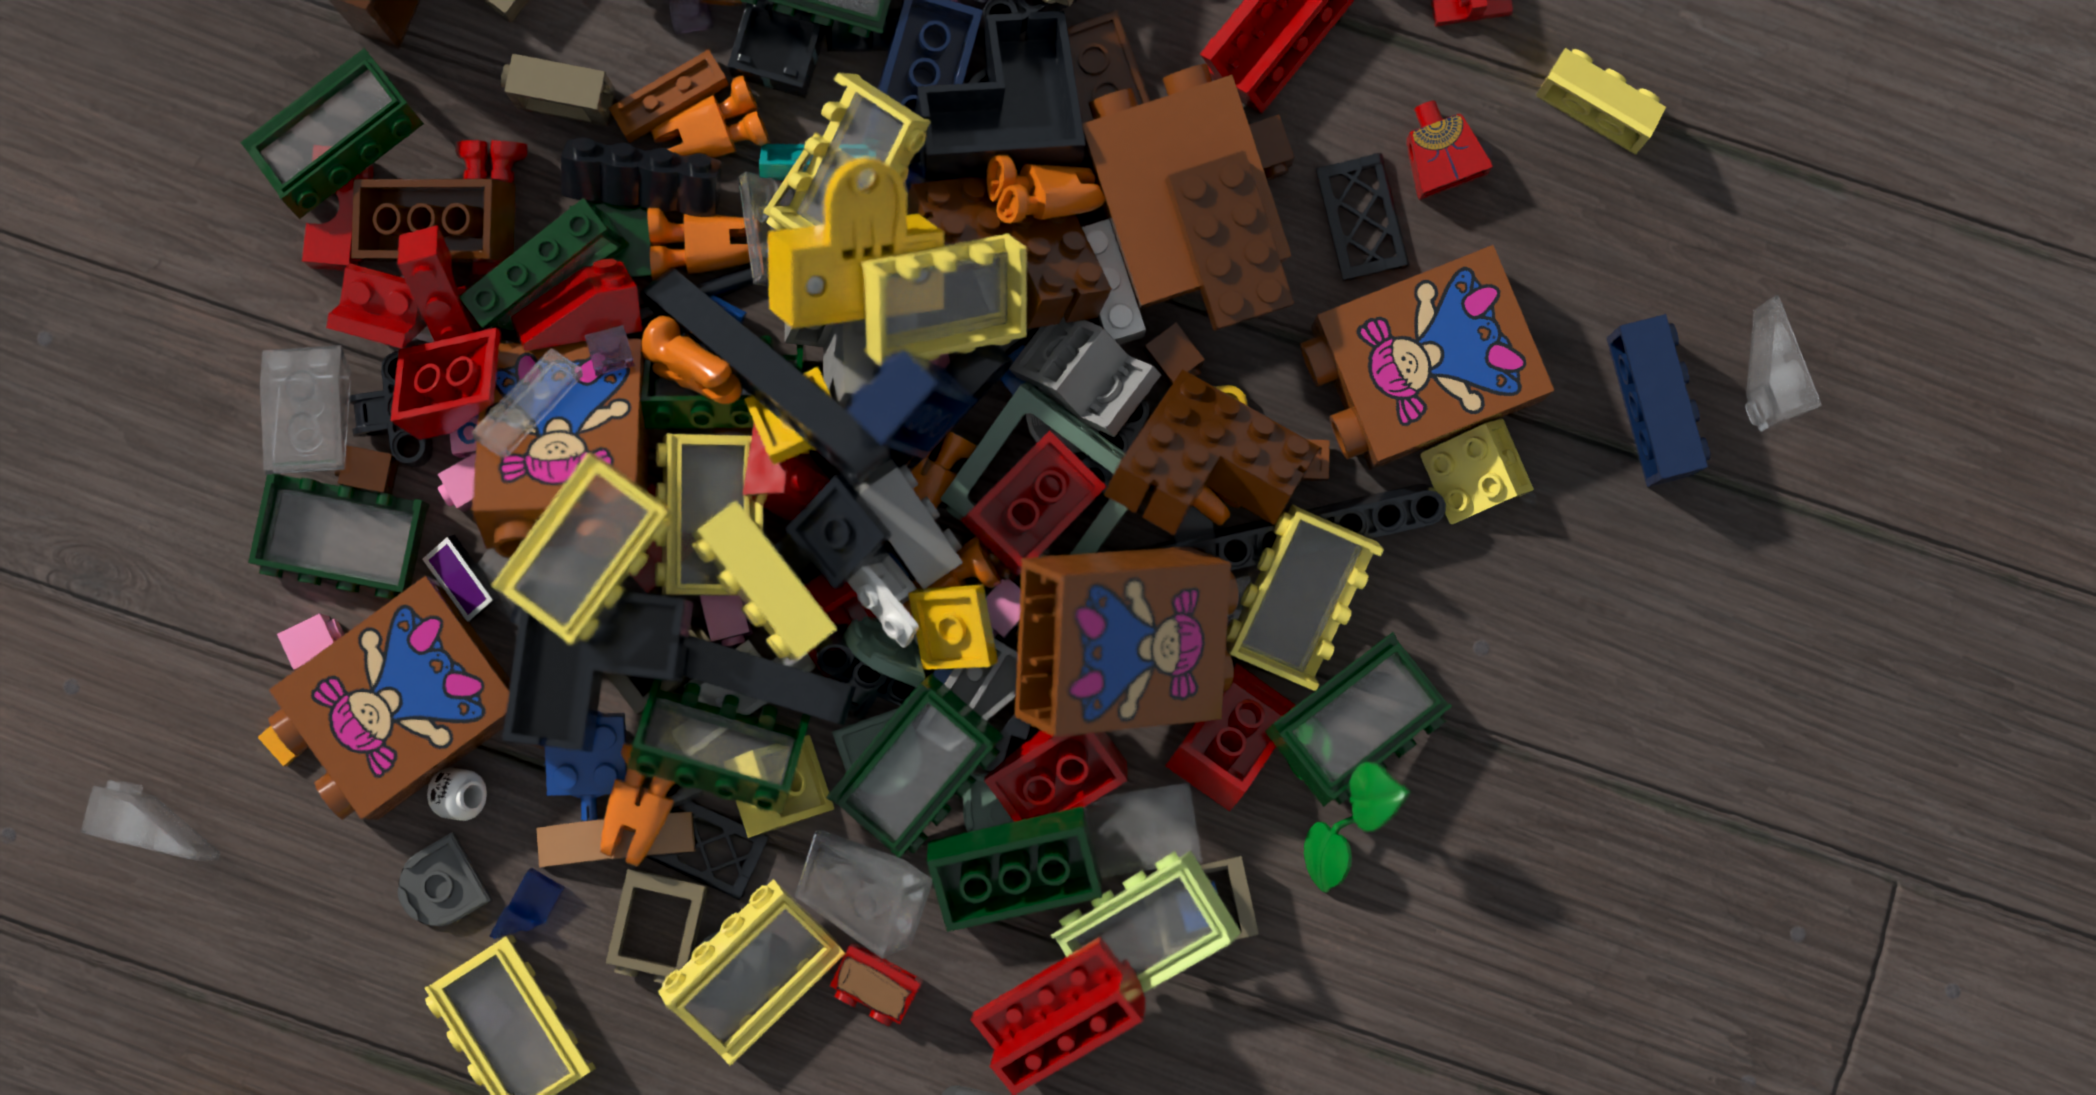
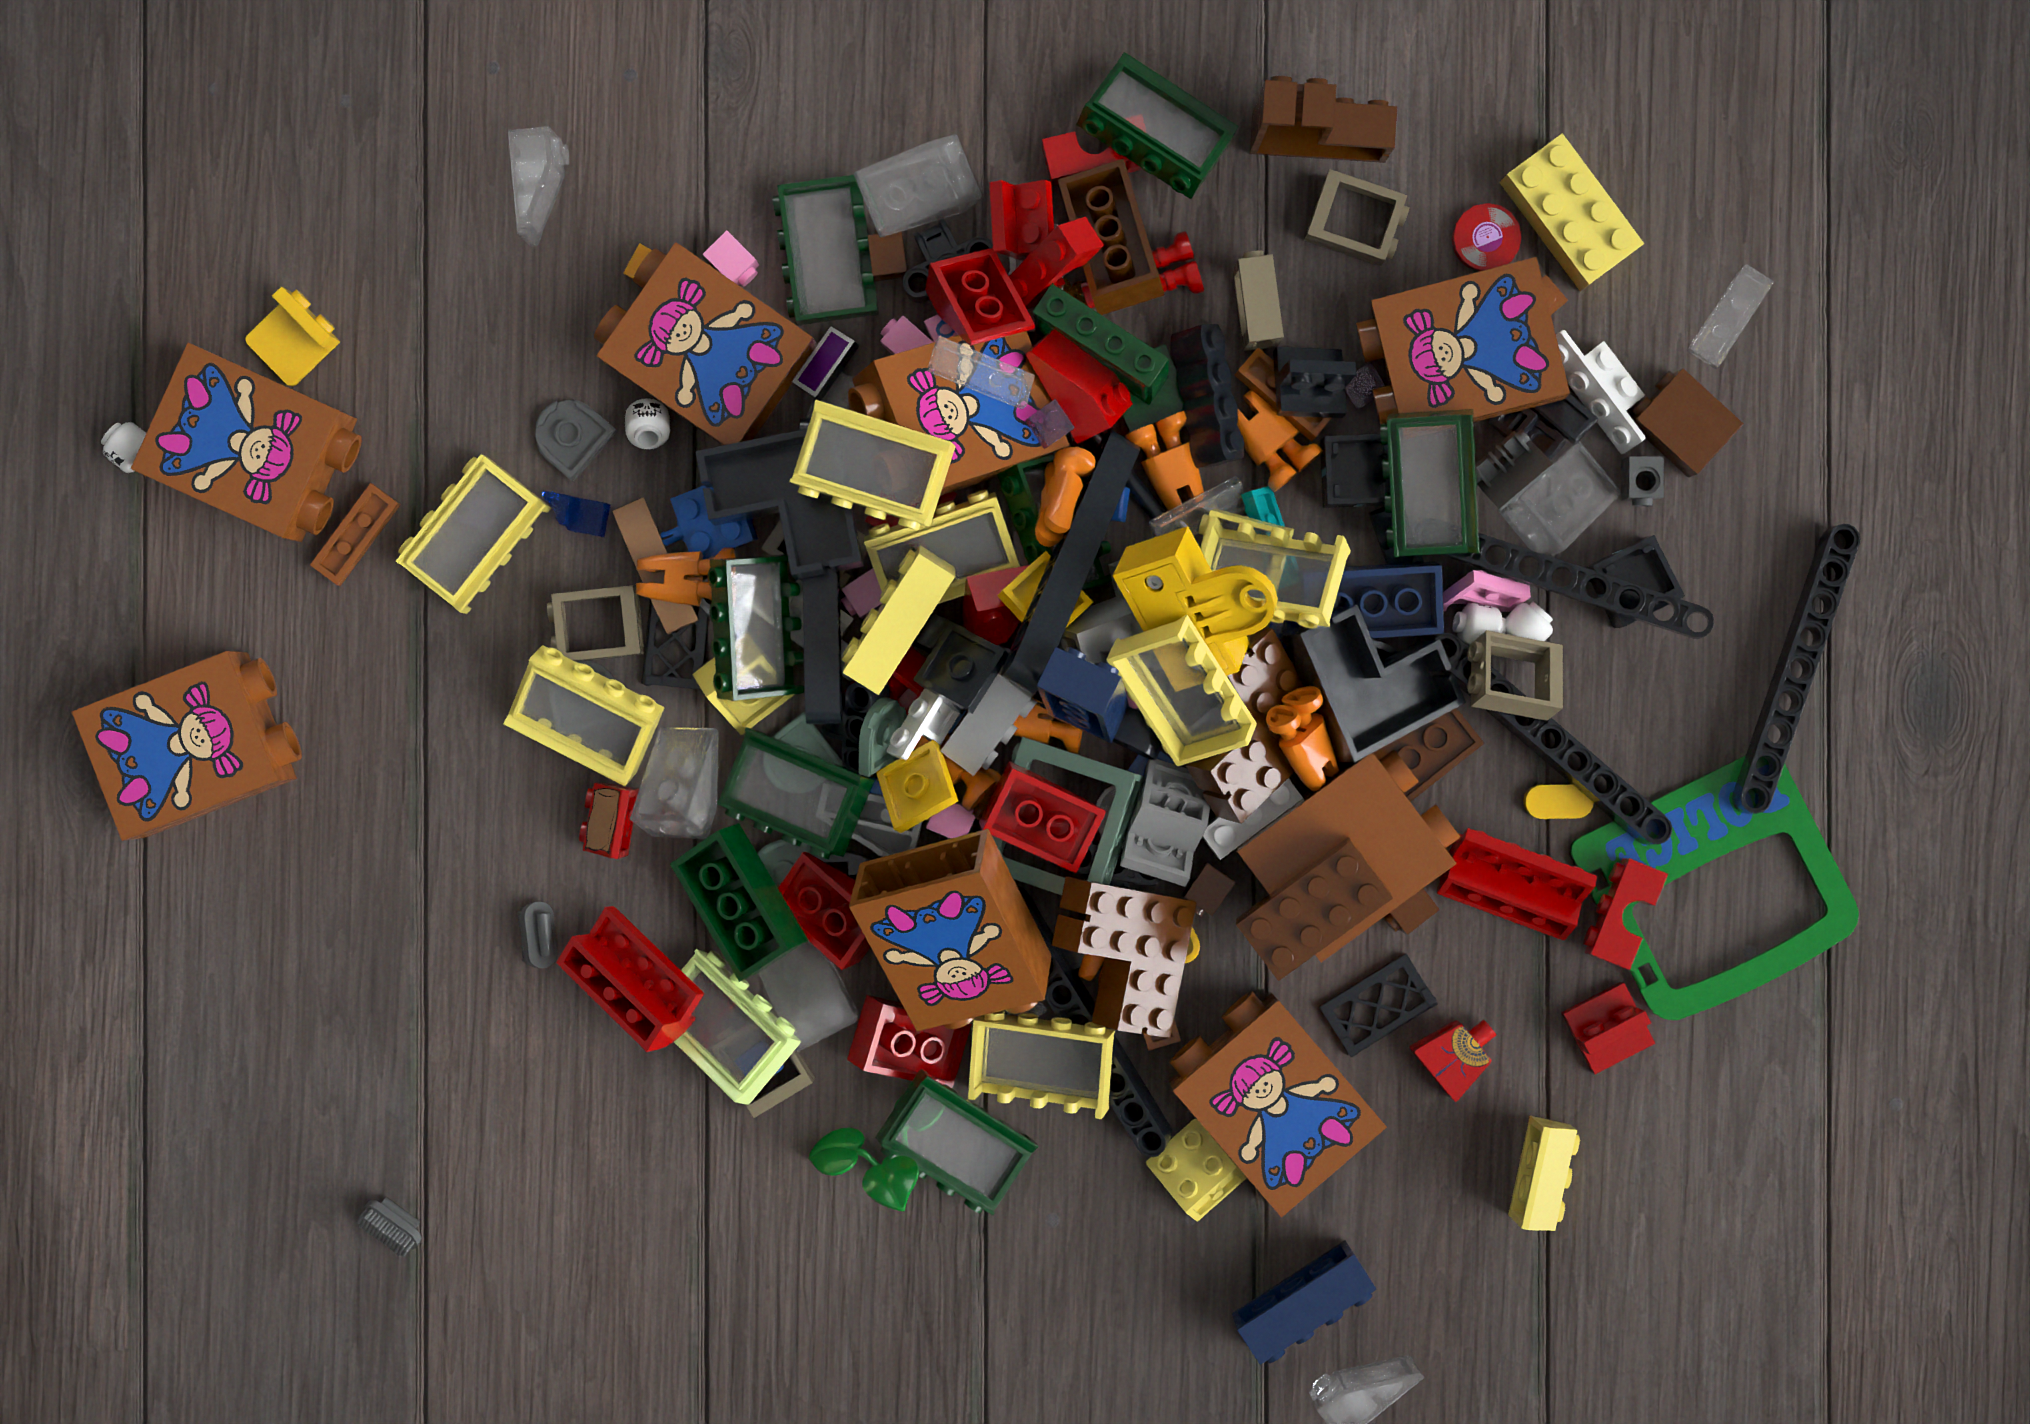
camera: 70 degrees right, 5 degrees up
(665, 62) = (1311, 382): none -> black bracket

